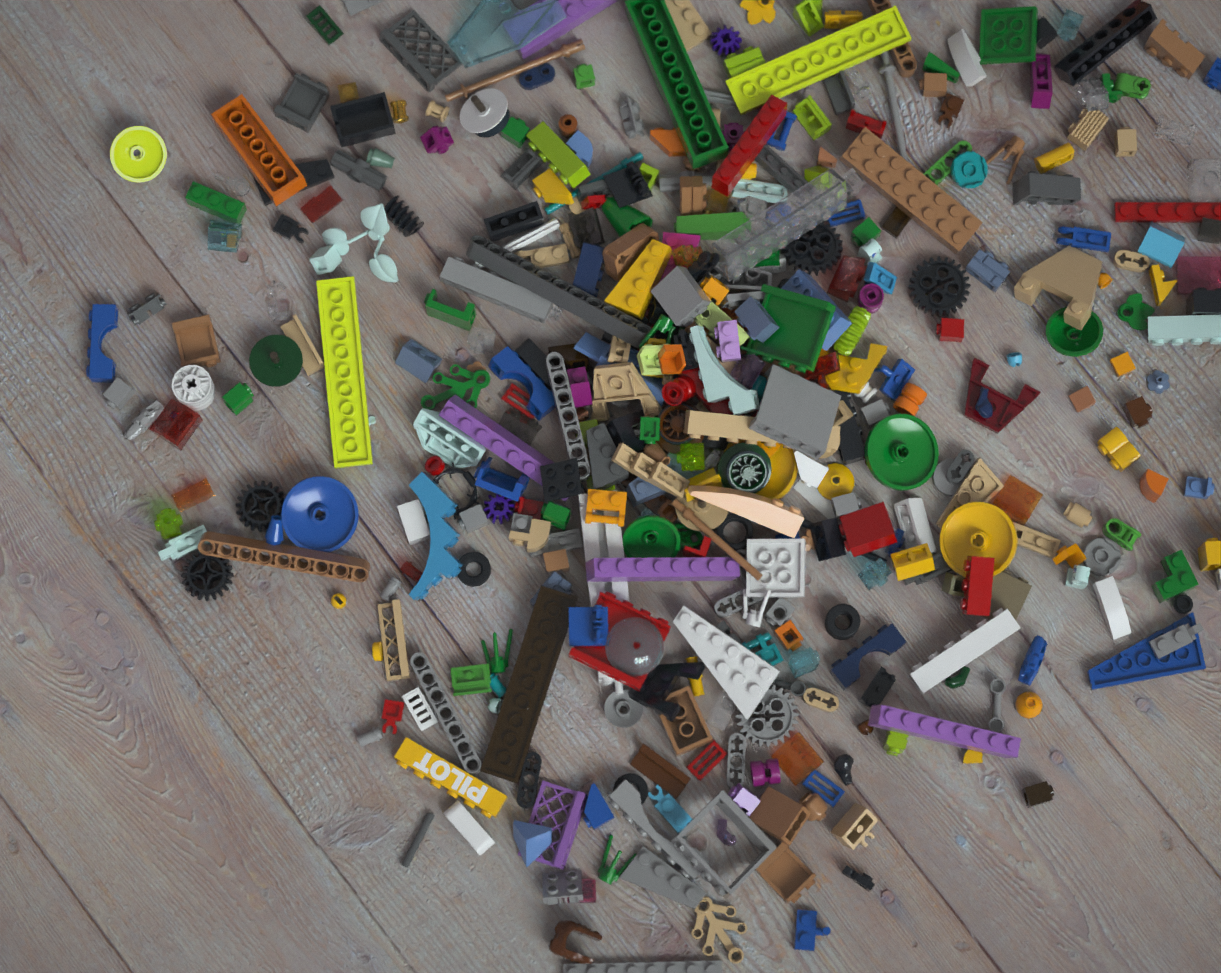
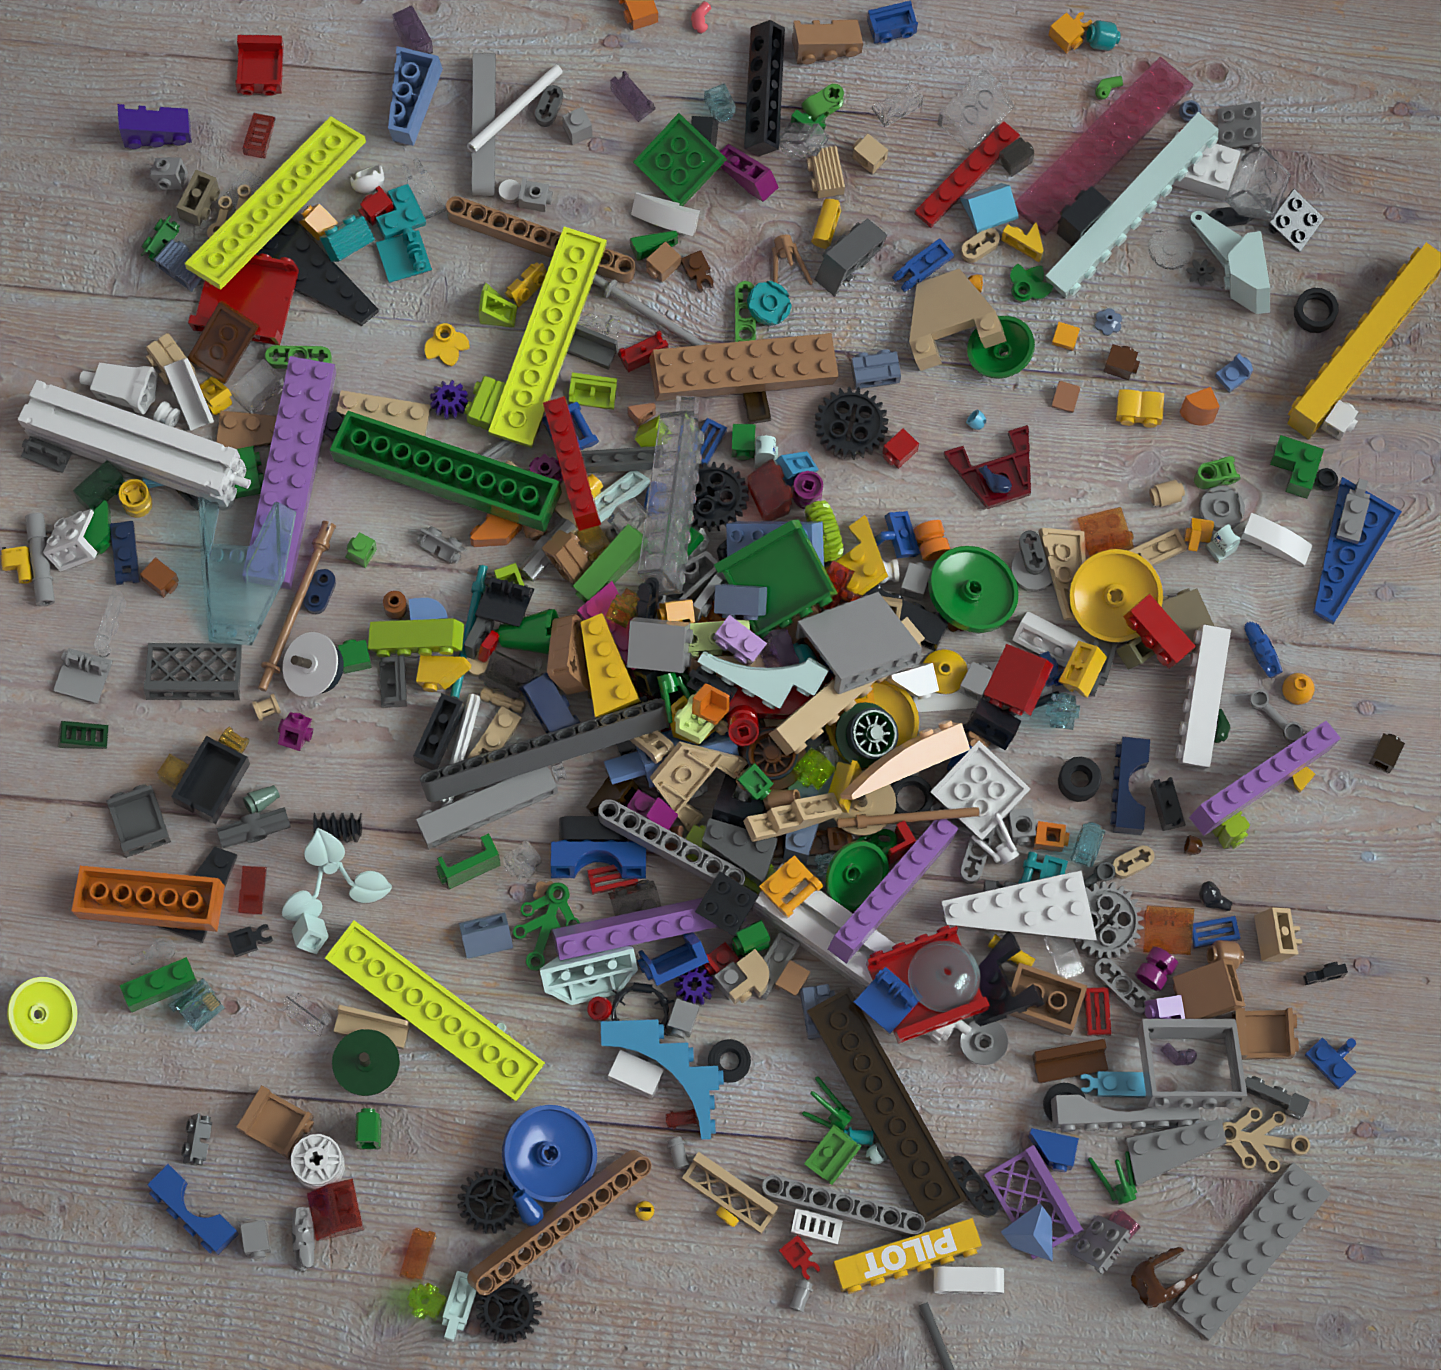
camera: 50 degrees left, 5 degrees down
(756, 930) = (1294, 1105): none -> dark grey plate

